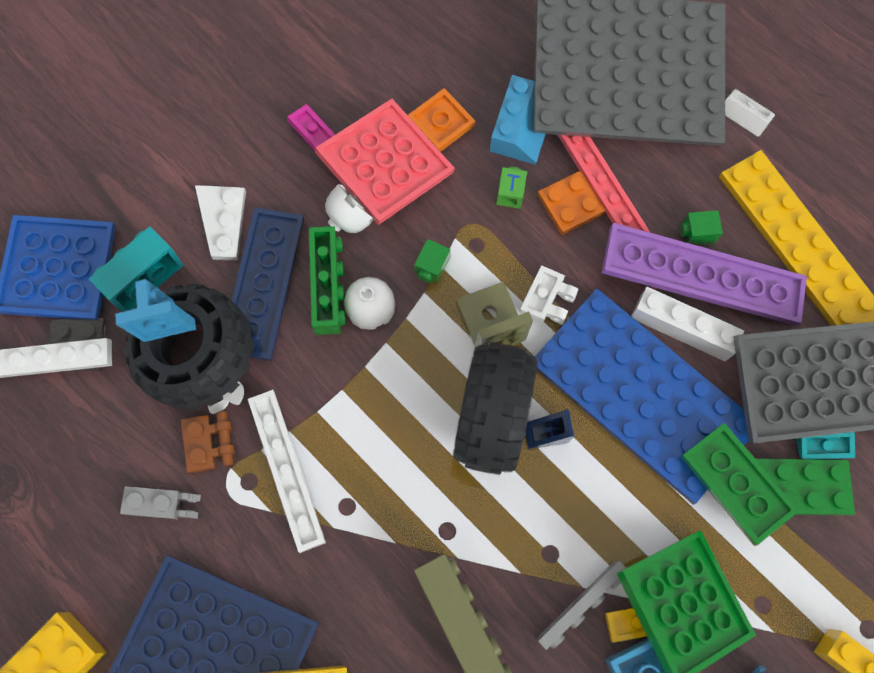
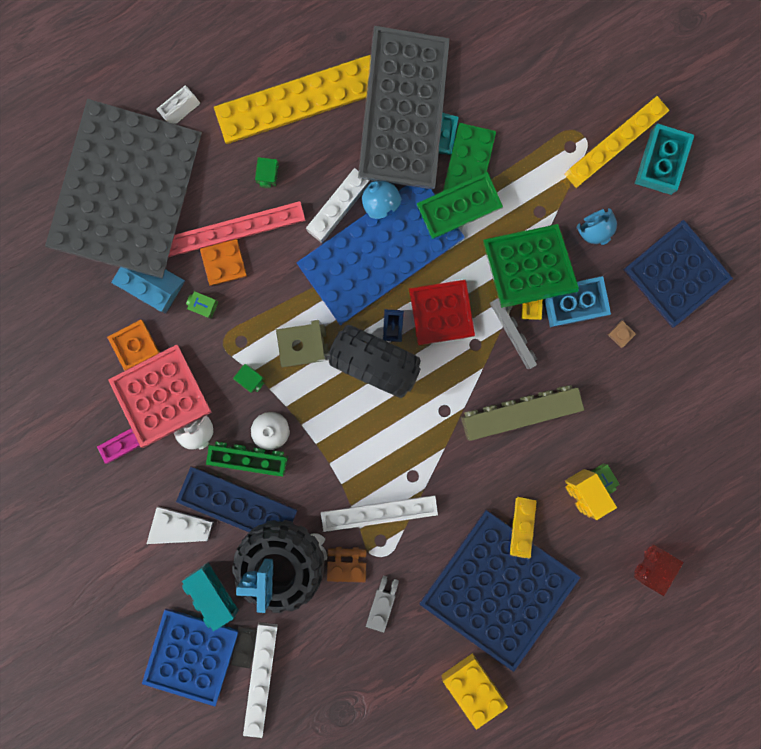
camera: 75 degrees left, 15 degrees up
(542, 294) = (291, 303): white plate -> none
(583, 494) = (441, 312): none -> red plate
(704, 274) = (304, 182): medium lavender plate -> none
(715, 373) = (380, 198): none -> dark azure cylinder

